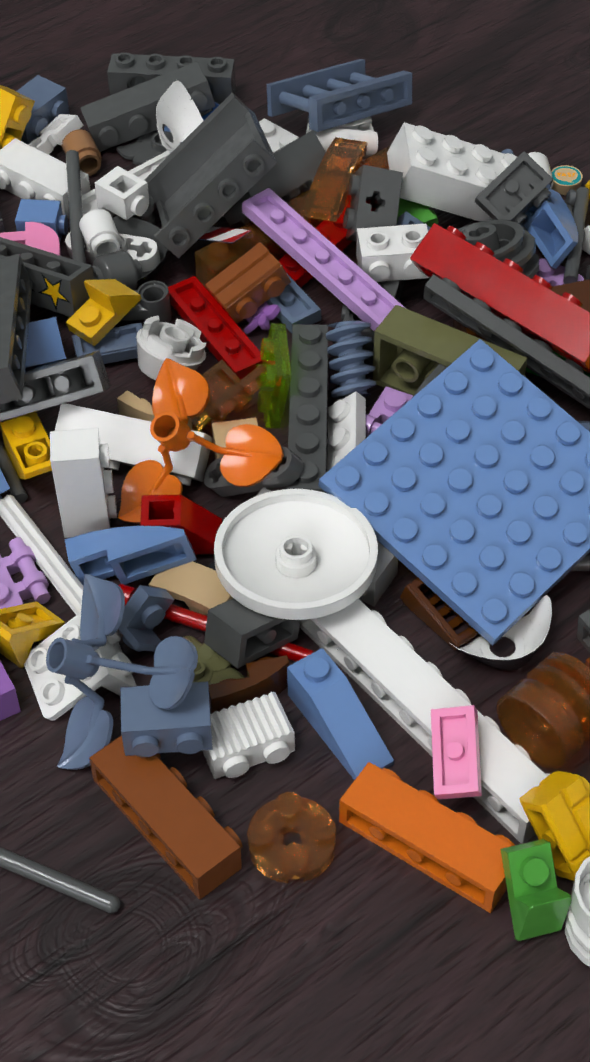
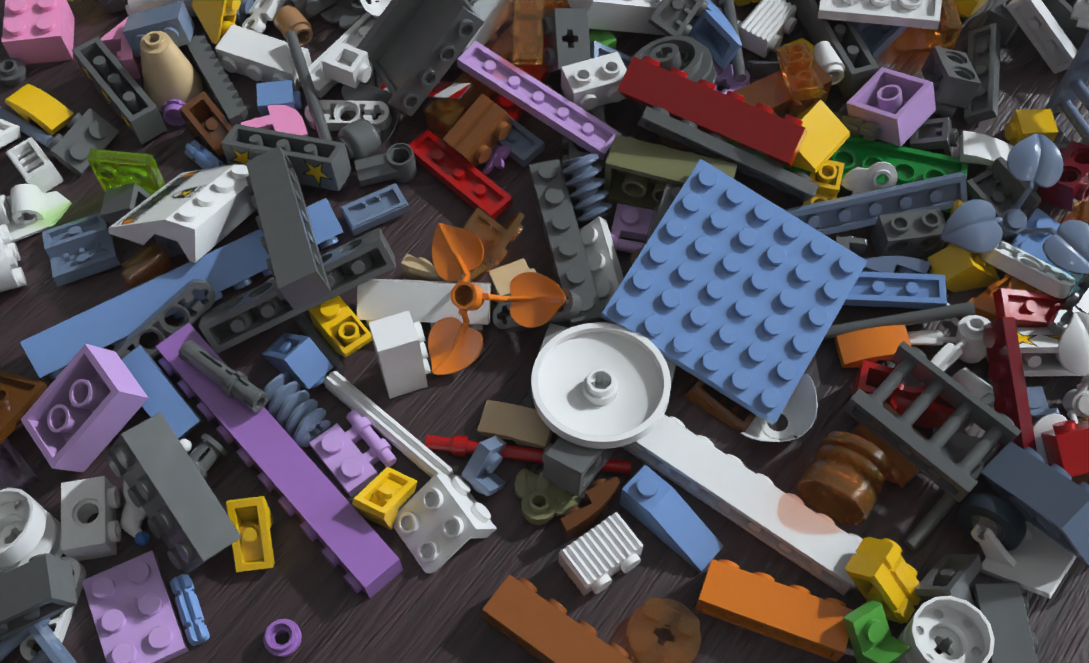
camera: 15 degrees left, 10 degrees up
(100, 232) = (337, 105): white brick -> none
(101, 616) = (468, 579): sand blue plant -> none
(106, 306) = (362, 180): yellow slope -> none
(128, 552) = (453, 407): medium blue slope -> none
(157, 730) = (540, 563): sand blue brick -> none
(167, 340) = (429, 204): white cone -> none
(182, 513) = (488, 373): red slope -> none
(276, 377) = (536, 221): clear neon green plate -> none
(456, 752) = (782, 537): bright pink plate -> none

